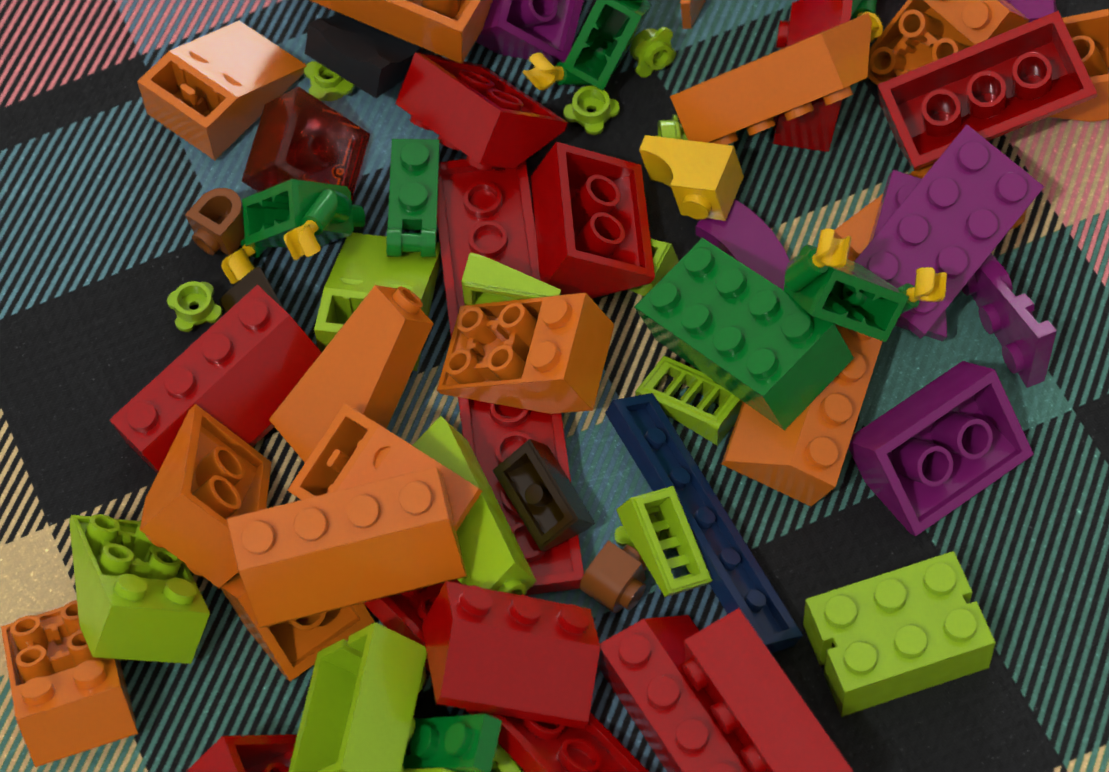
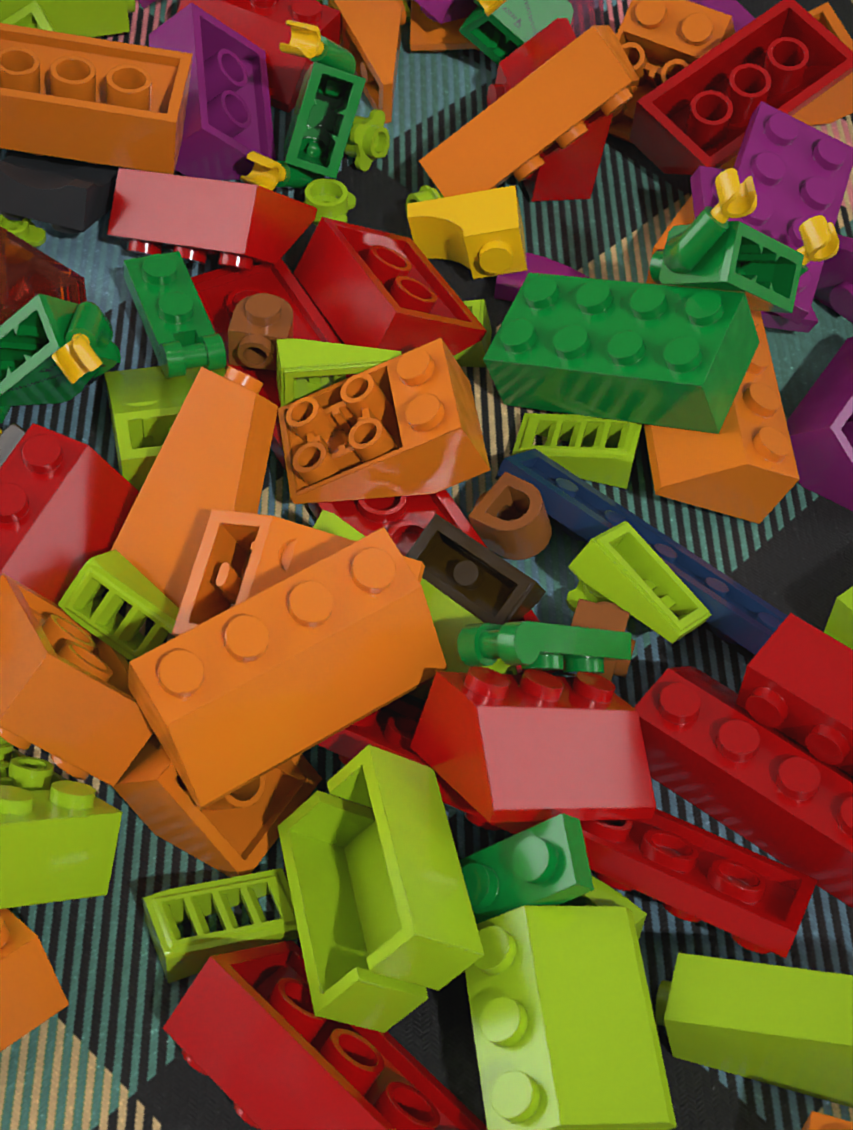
camera: 30 degrees left, 10 degrees down
(244, 687) = (193, 902): none -> lime slope
(272, 446) = (101, 615): none -> lime slope
(469, 230) = (254, 330): none -> dark orange plate
(541, 579) = (542, 646): none -> green plate
(600, 453) = (512, 519): none -> dark orange plate

